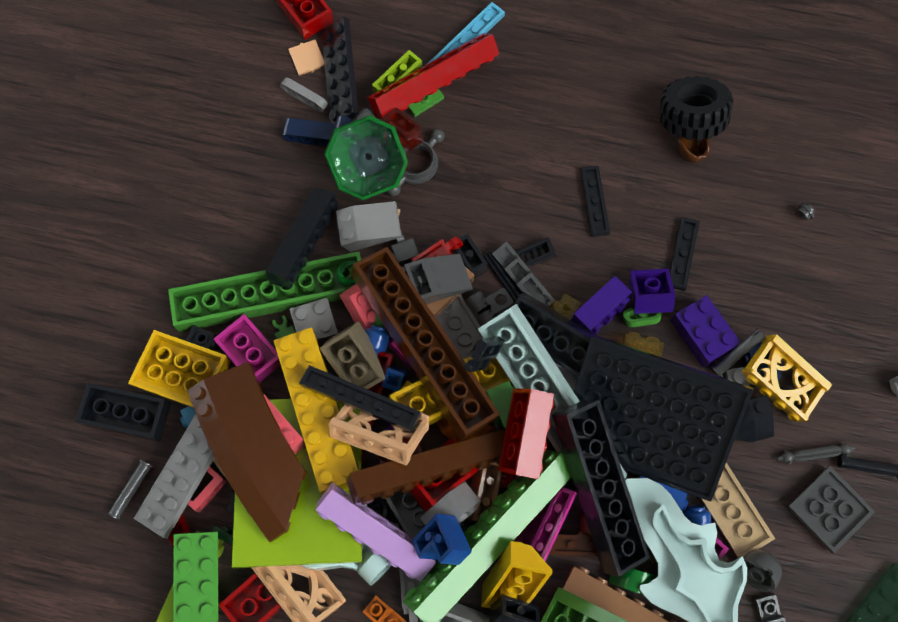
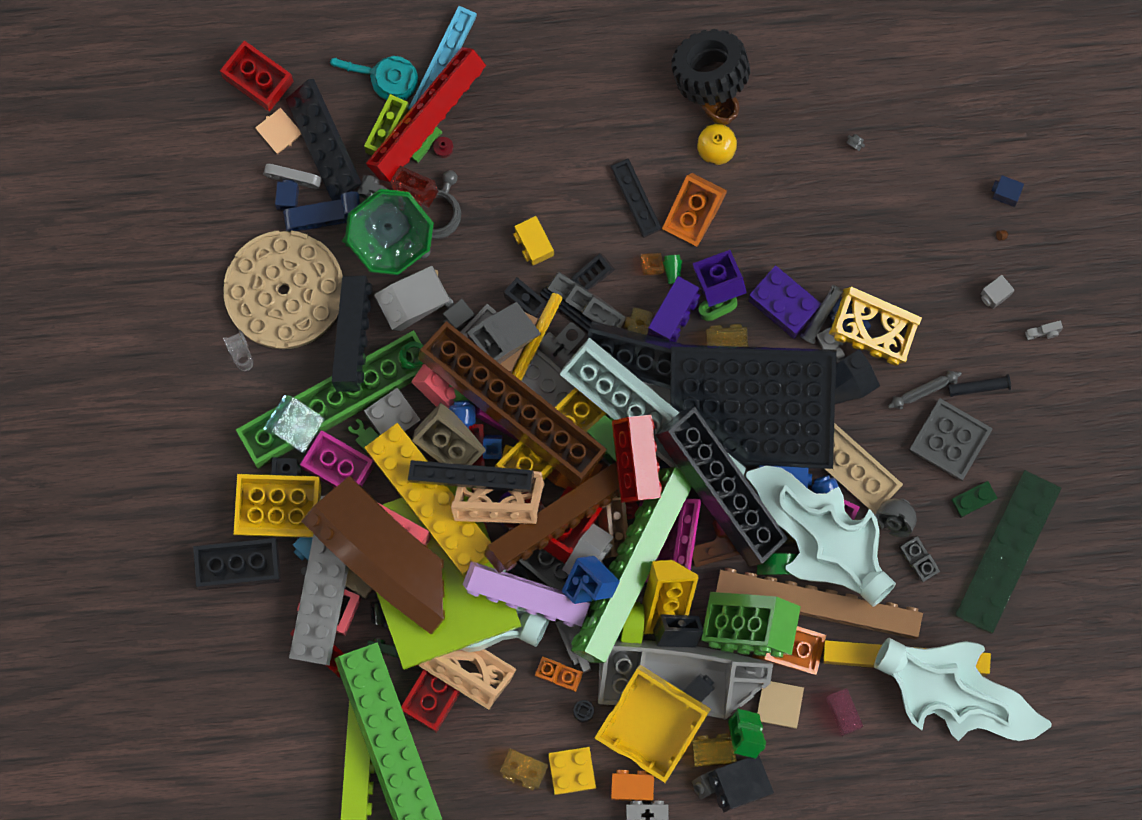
camera: 15 degrees left, 5 degrees up
(130, 489) = (270, 634): dark grey pin -> none
(202, 221) = (238, 348): none -> clear piece
(221, 300) = (294, 423): none -> clear light blue bracket
(234, 180) = (278, 318): none -> tan plate
(293, 107) = (286, 195): none -> dark blue brick
(417, 38) = (389, 76): none -> teal piece
(440, 110) = (443, 151): none -> dark red tile
(440, 248) = (493, 305): red plate -> none
(462, 298) = (542, 325): none -> yellow axle
(474, 596) = (633, 628): none -> lime brick
(484, 351) = (573, 396): black plate -> none
(493, 209) = (534, 241): none -> yellow brick
(592, 261) = (652, 264): none -> clear orange tile
(610, 269) = (672, 267): none -> green cone
(644, 225) = (694, 209): none -> orange slope
(680, 177) = (714, 151): none -> yellow cylinder
(683, 252) = (742, 226): black tile -> none
(839, 575) = (974, 499): none -> dark green plate

